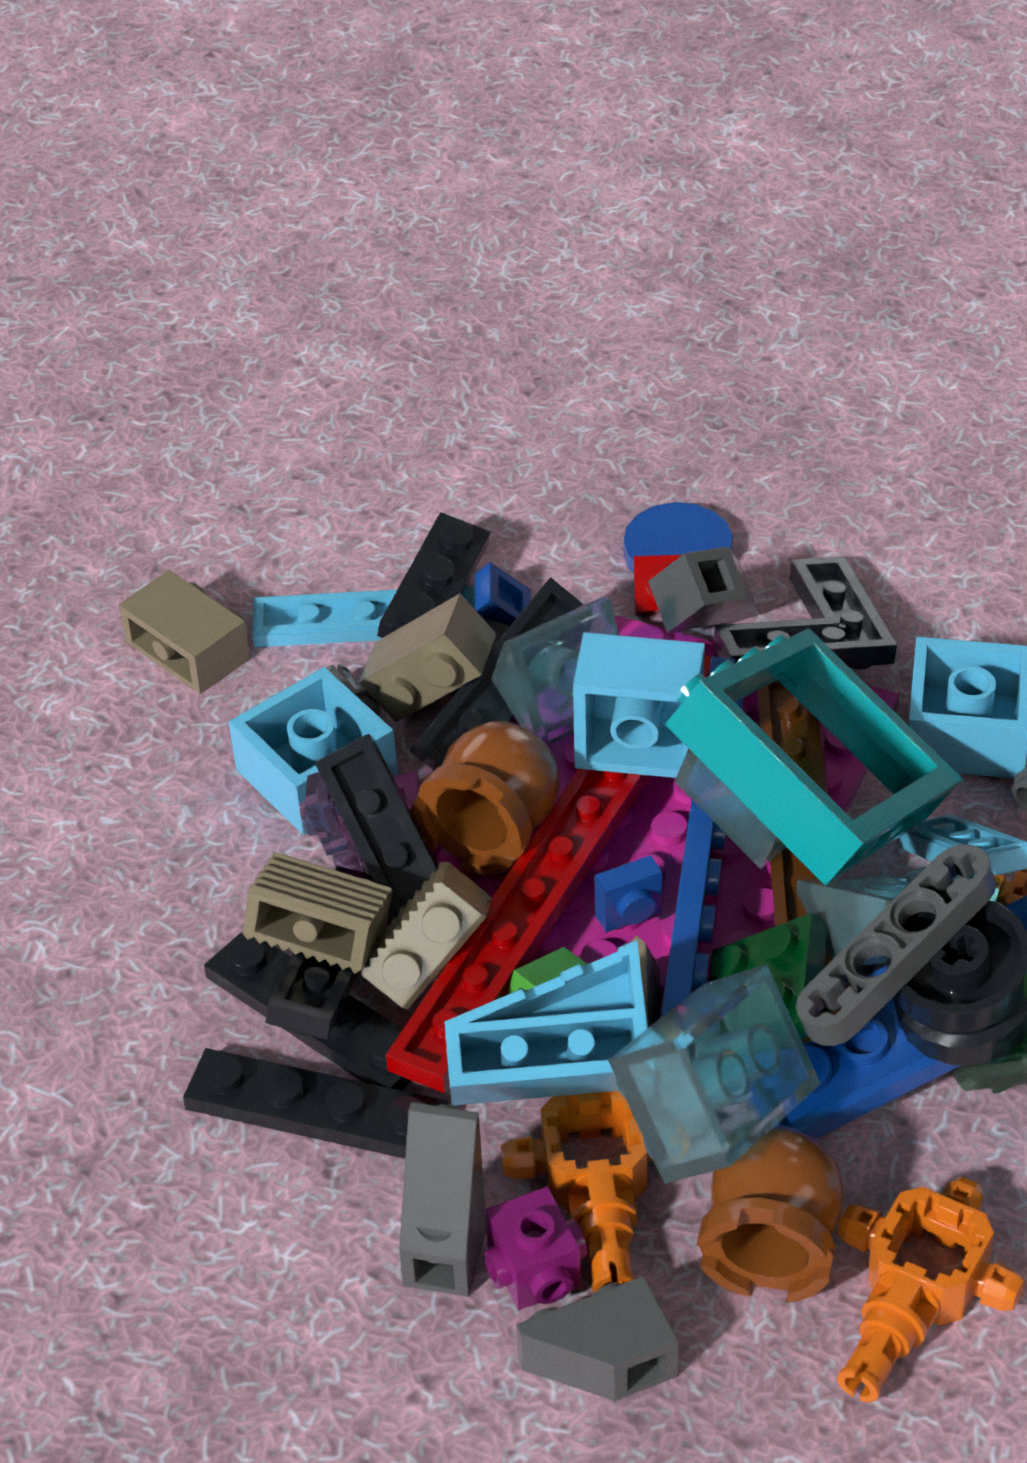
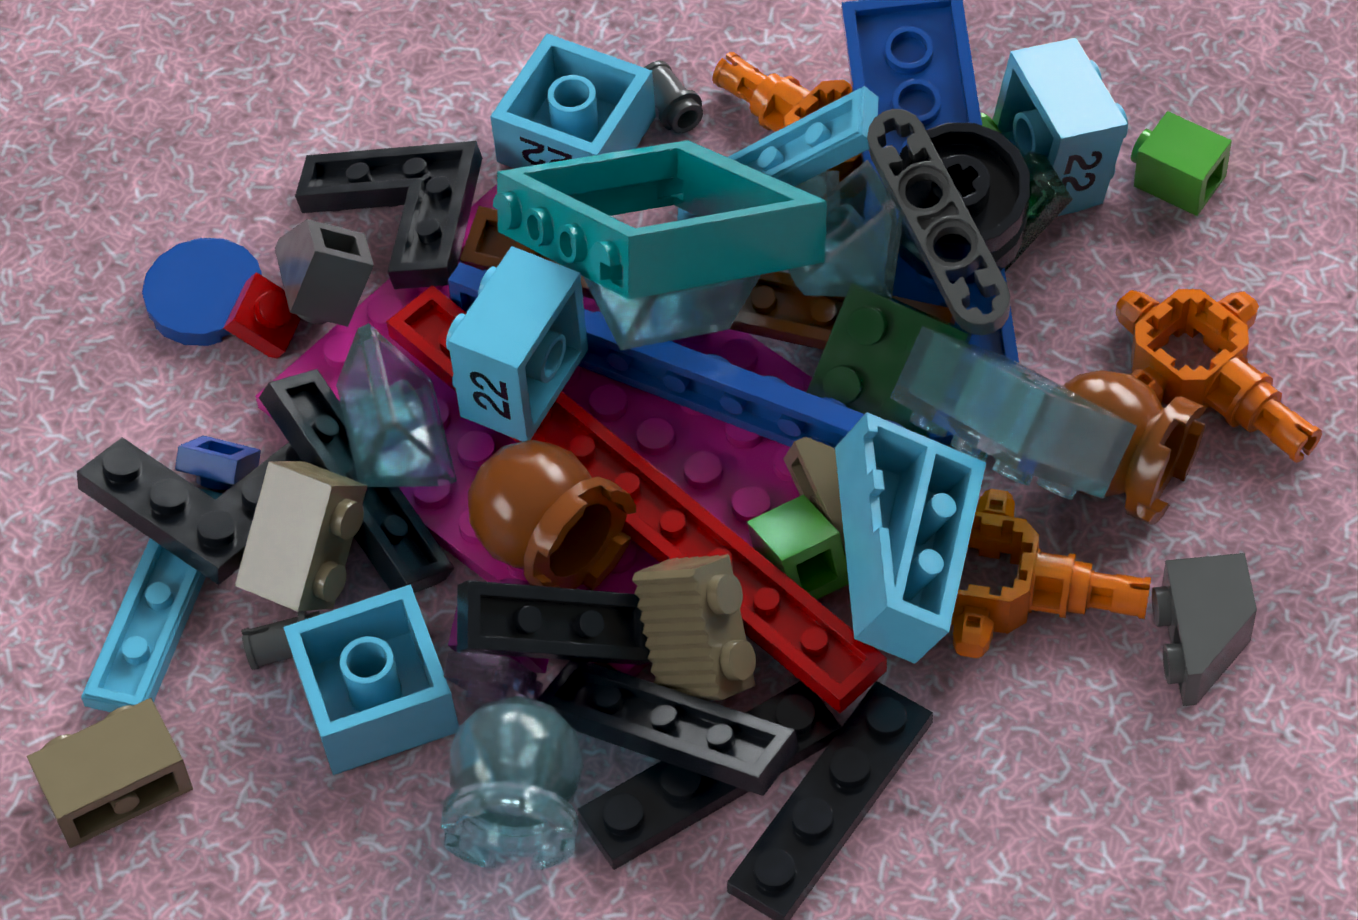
camera: 70 degrees left, 10 degrees up
(227, 855) = (513, 785): none -> clear light blue tile
(316, 911) = (647, 707): dark tan brick -> none
(442, 1199) = (1047, 694): dark grey slope -> none
(533, 1249) = (1094, 646): magenta brick -> none
(628, 894) = (713, 444): blue plate -> none

